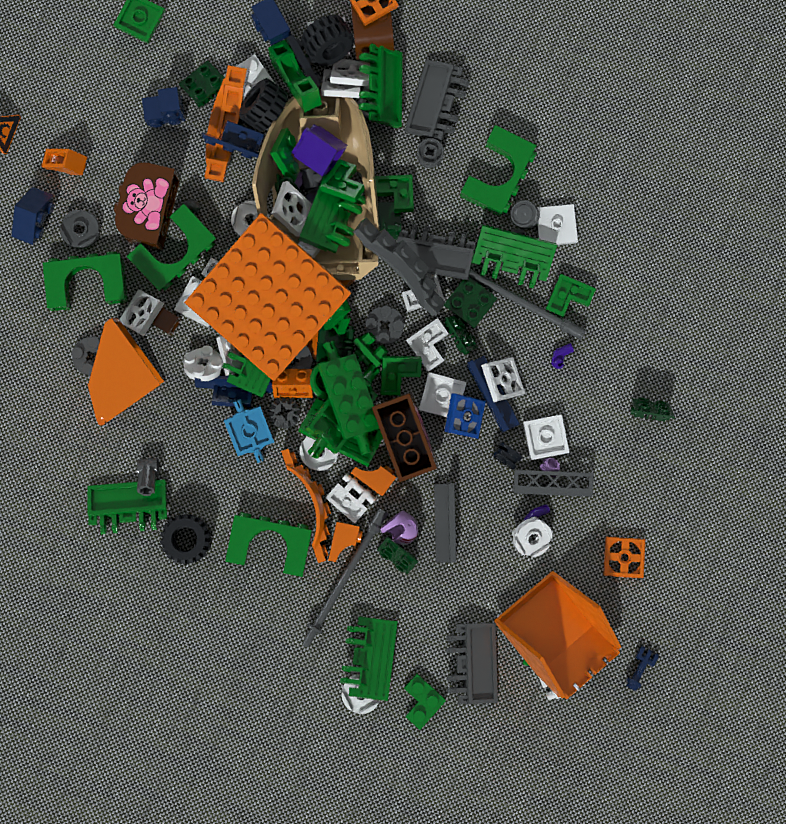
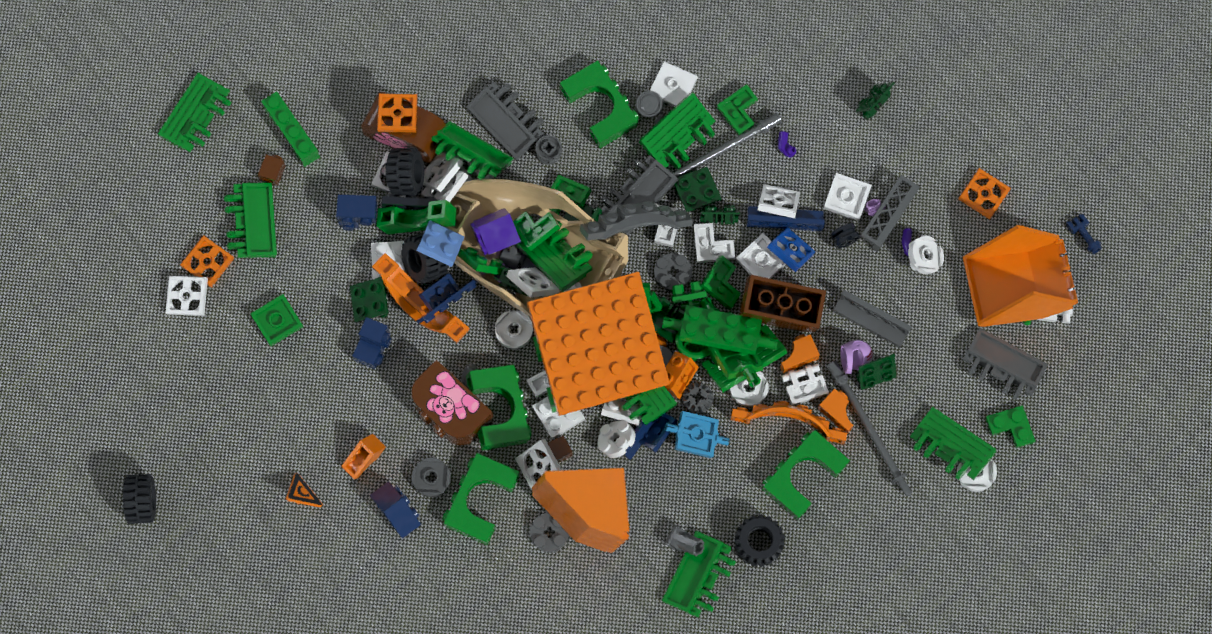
camera: 60 degrees left, 10 degrees down
(277, 108) = (440, 243): none -> medium blue plate

